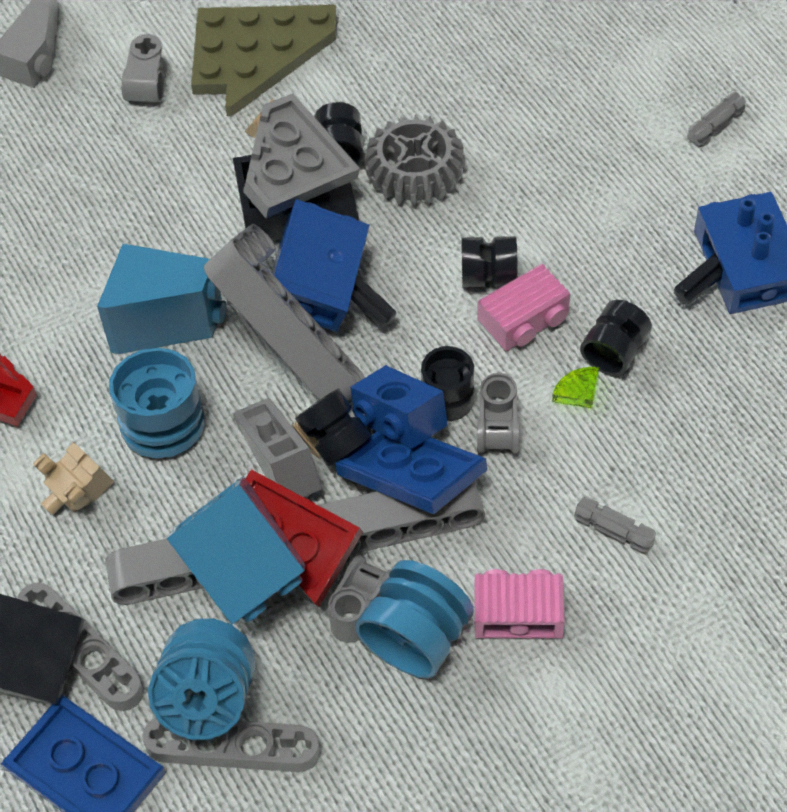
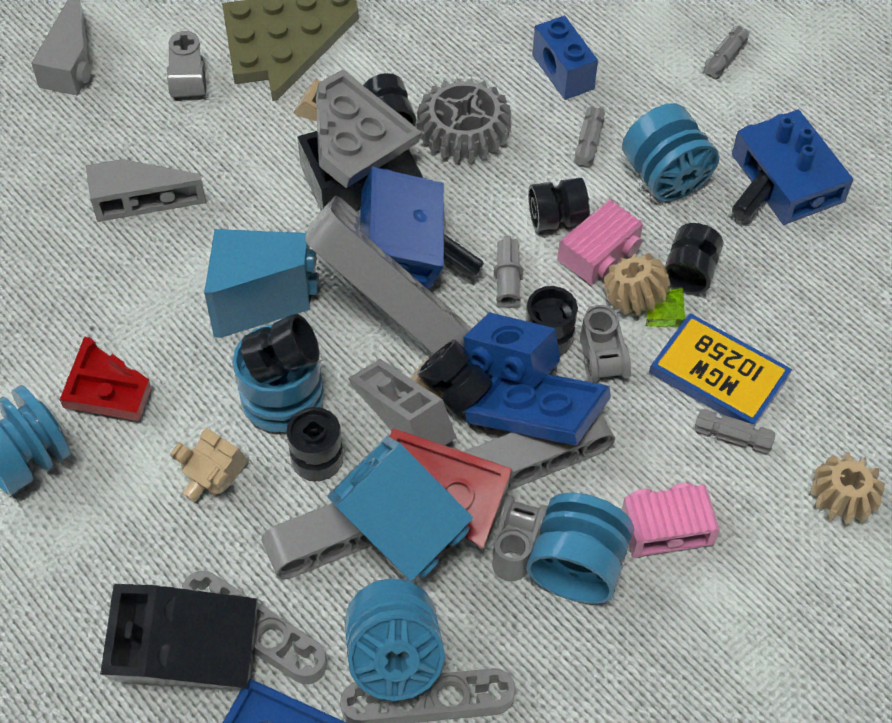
camera: 15 degrees left, 0 degrees up
(66, 191) = (137, 188): none -> light grey slope
(155, 373) = (280, 349): none -> black wheel
(178, 474) = (315, 443): none -> black wheel
(420, 326) = (508, 273): none -> light grey axle
(537, 105) = (564, 57): none -> blue brick
(544, 193) = (589, 136): none -> light grey axle
(548, 356) = (637, 284): none -> tan gear
(617, 459) = (720, 370): none -> tile
(618, 221) = (670, 152): none -> dark azure wheel
(715, 601) = (847, 488): none -> tan gear

